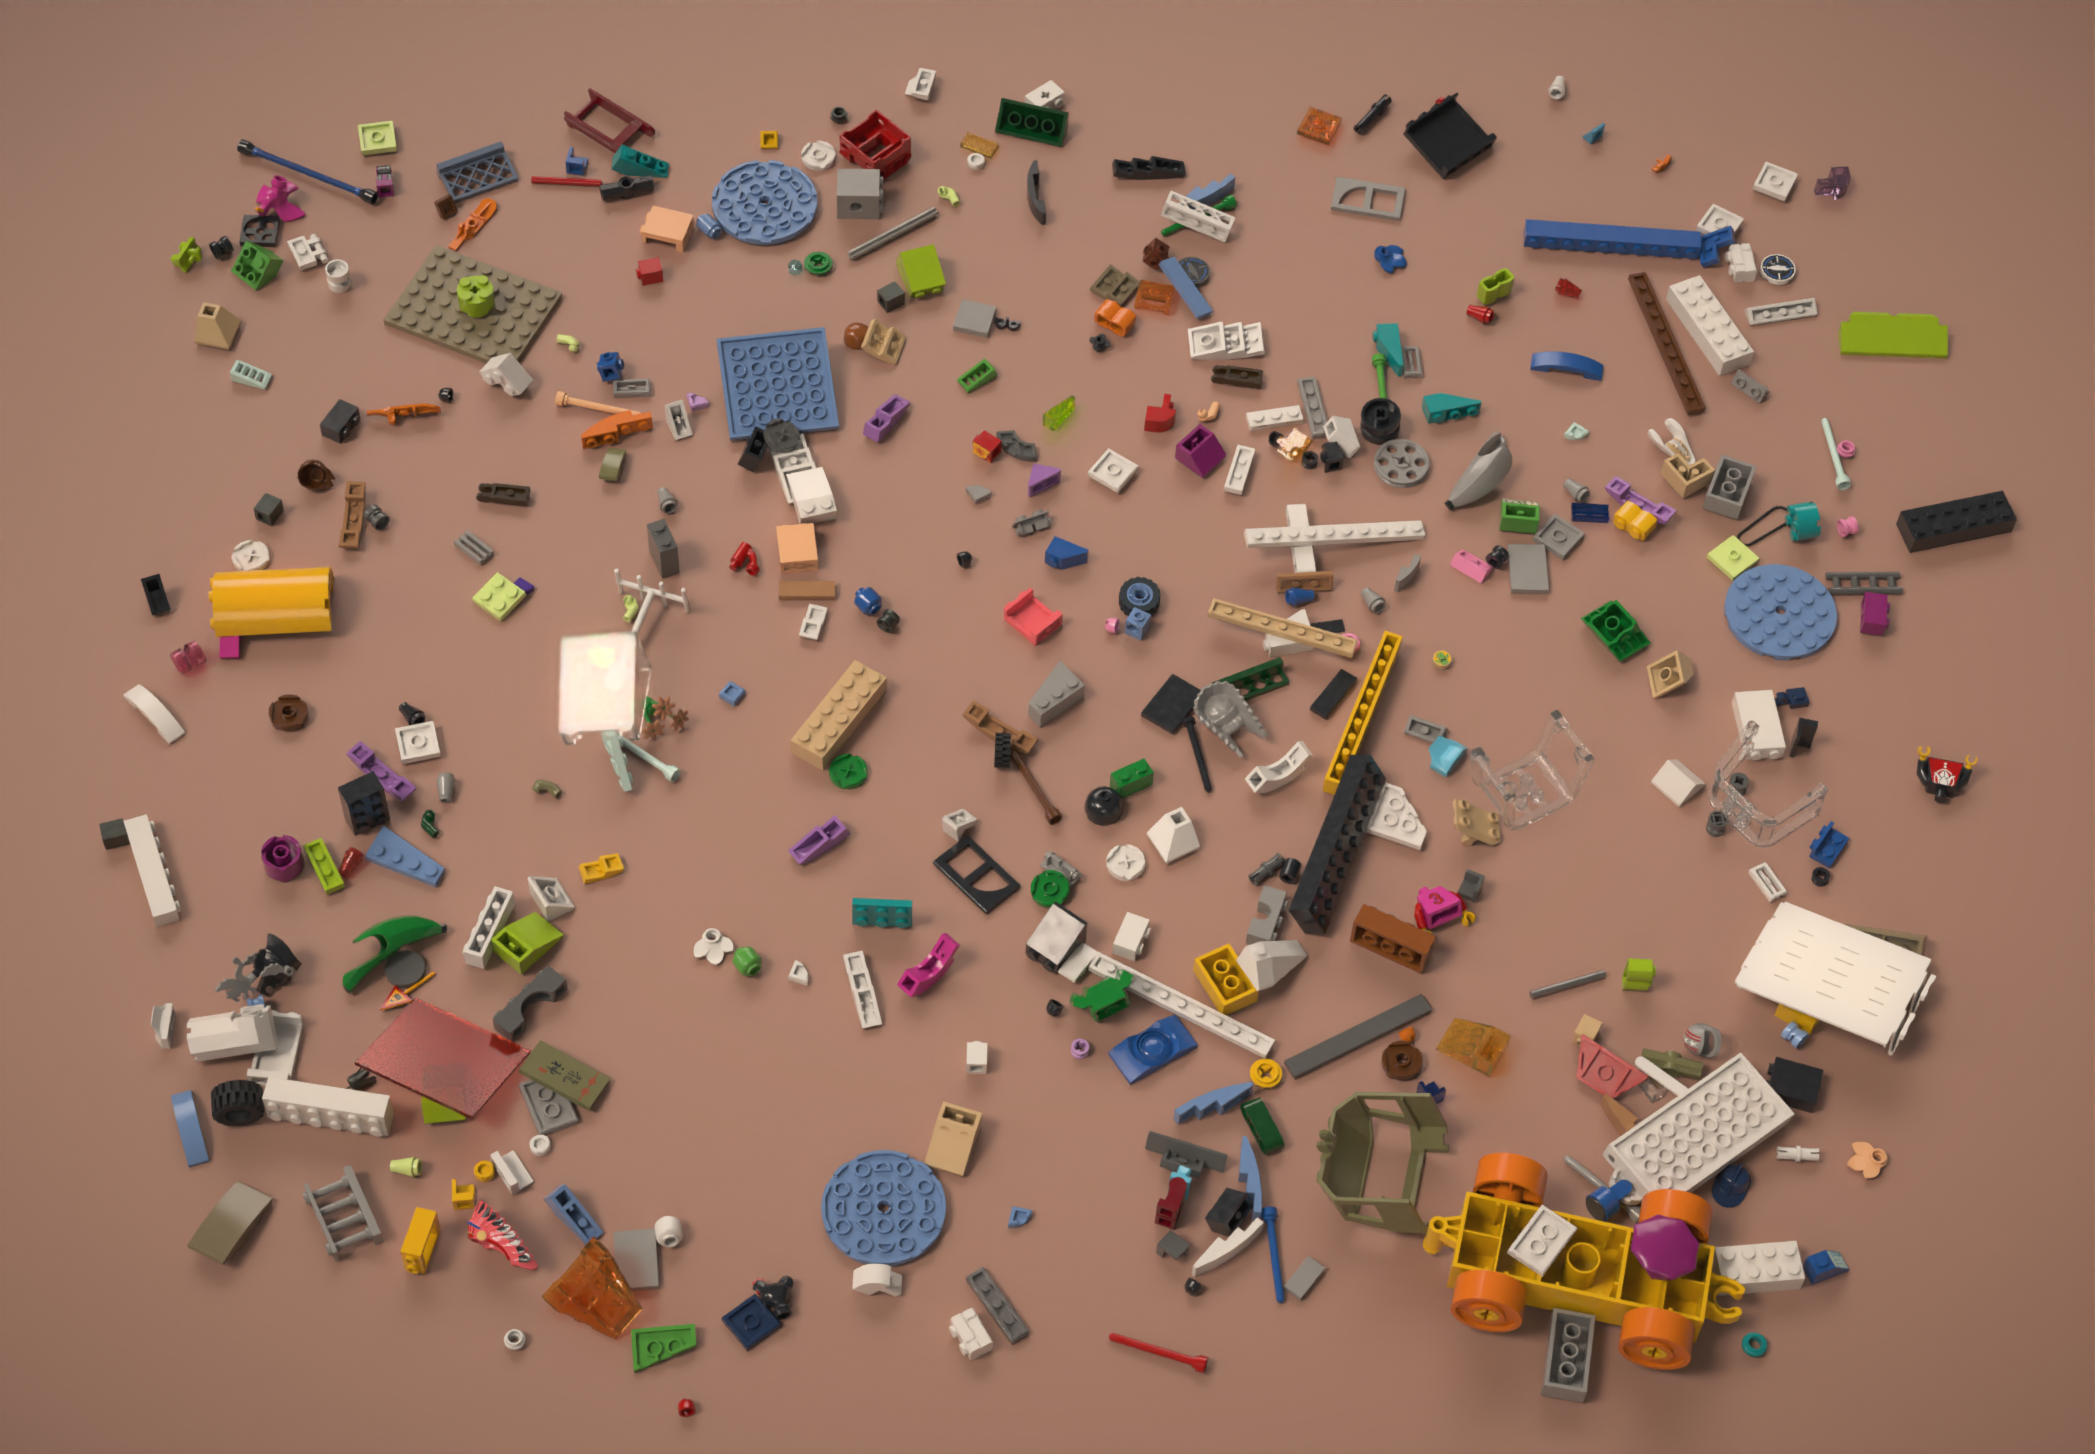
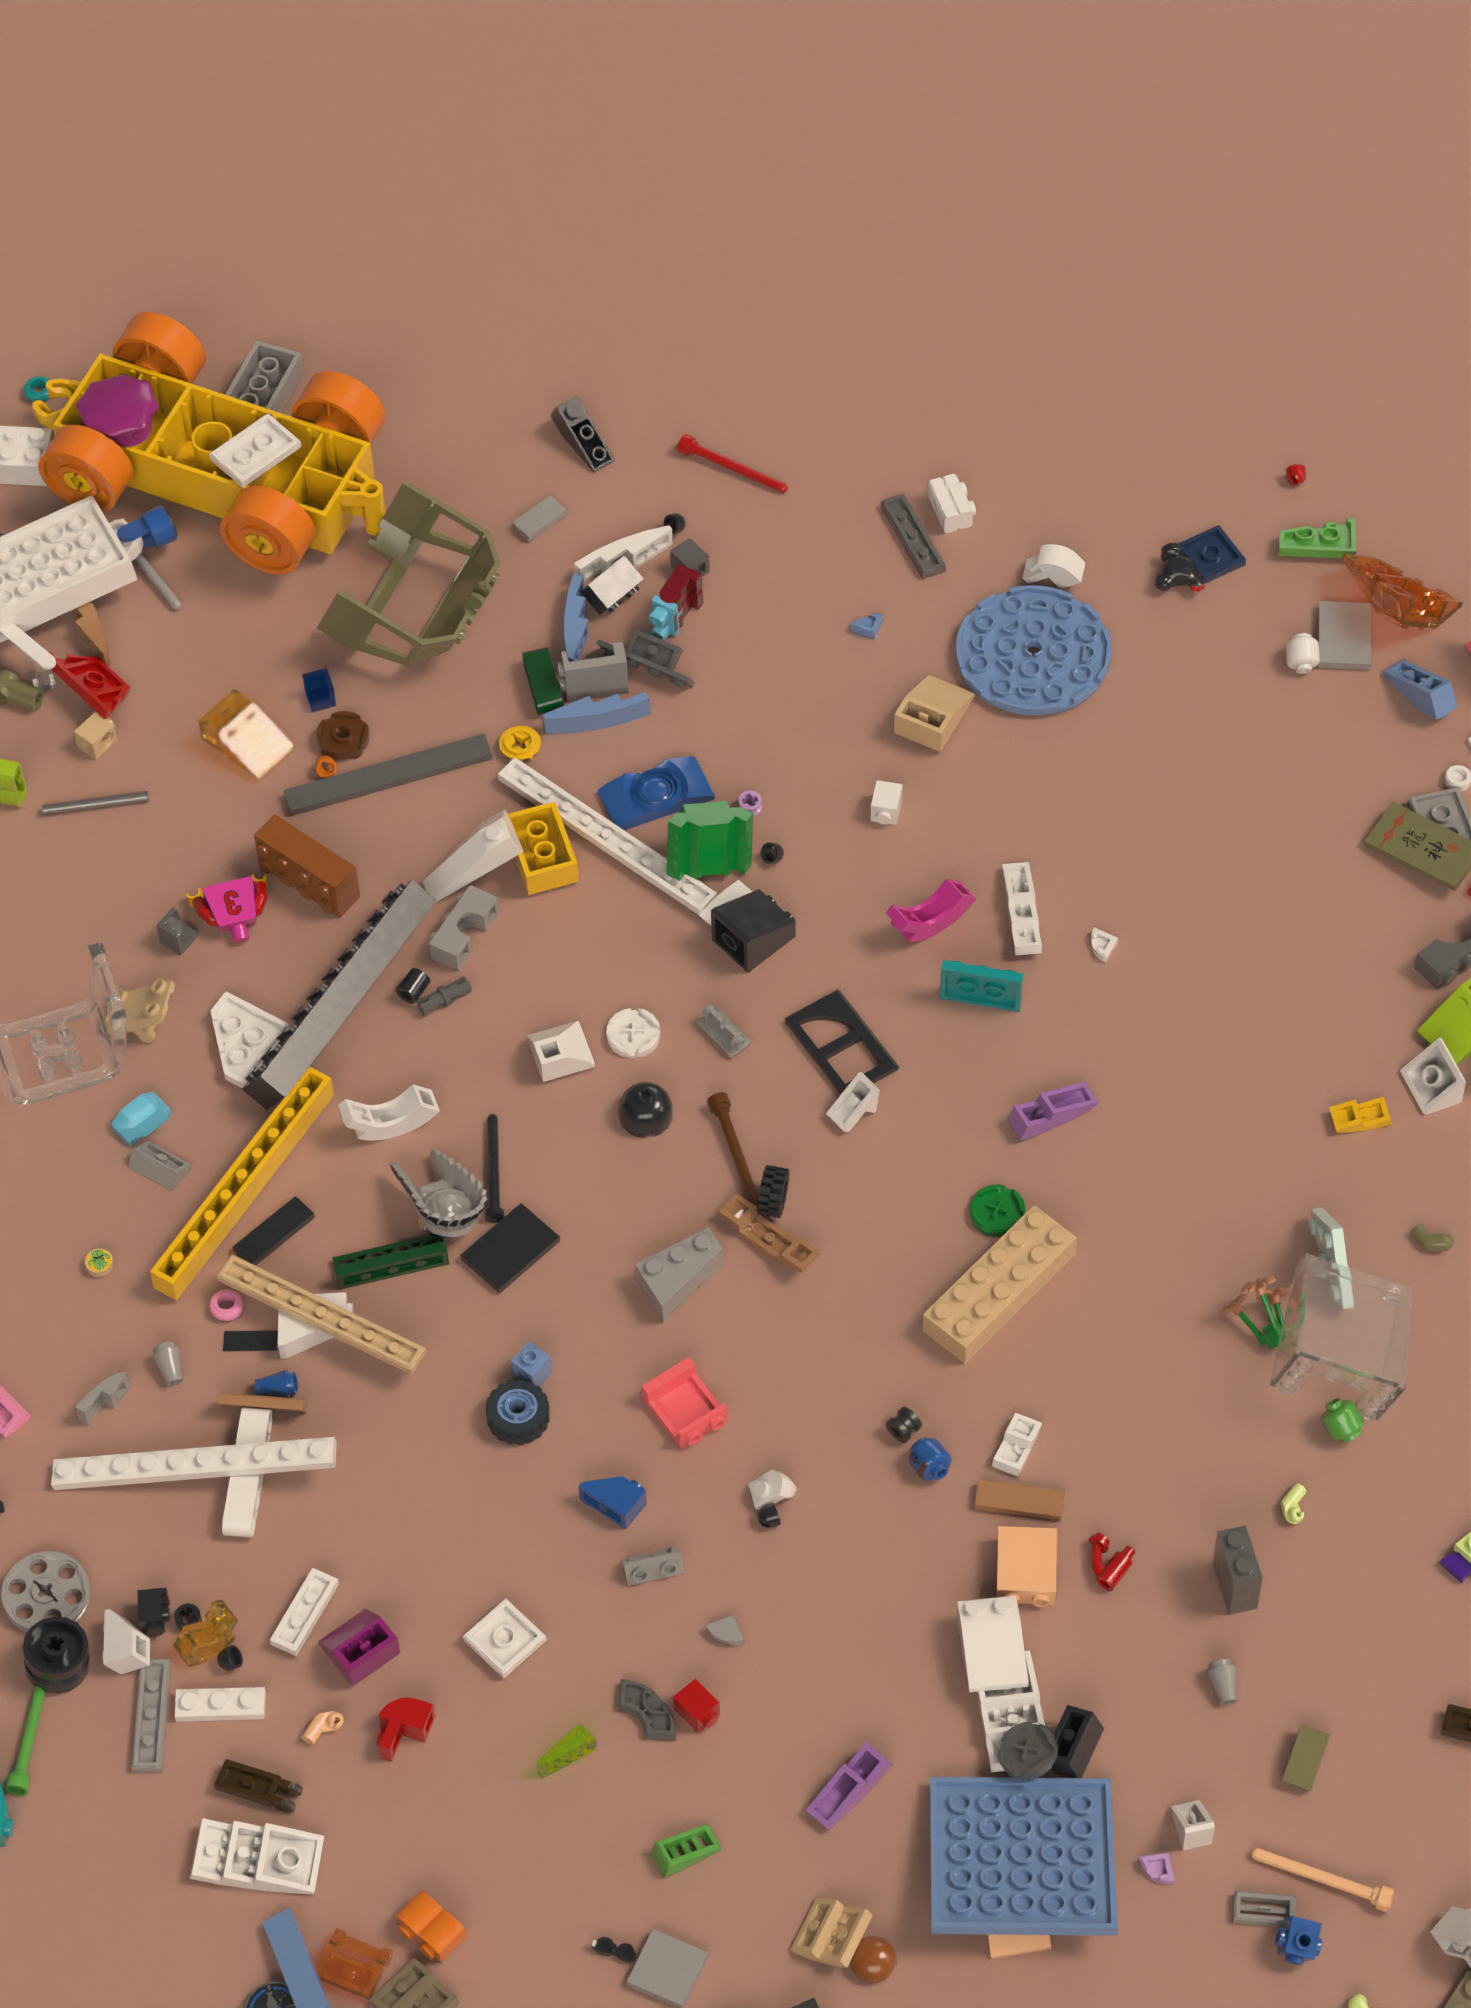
camera: 165 degrees left, 0 degrees up
(610, 428) = (1308, 1822): orange slope -> none
(649, 597) = (1317, 1395): white piece -> none
(671, 772) = (1253, 1237): light aqua piece -> none
(713, 949) = (1215, 989): white plate -> none
(732, 693) = (1152, 1350): medium blue tile -> none
(747, 961) = (1171, 956): bright green head -> none
(965, 571) = (771, 1489): none -> white plate
(1042, 478) = (621, 1635): medium lavender slope -> none
(1050, 887) = (745, 1006): green tile -> none
(1099, 342) = (468, 1894): black plate -> none
(1112, 625) = (569, 1376): bright pink hinge -> none
(1131, 936) = (650, 926): white brick -> none
(1132, 778) = (598, 1135): green brick -> none
(1221, 1122) = (594, 676): none -> light grey panel
(1269, 1215) = (562, 581): blue piece -> none
(1292, 1360) = (581, 434): none -> black slope

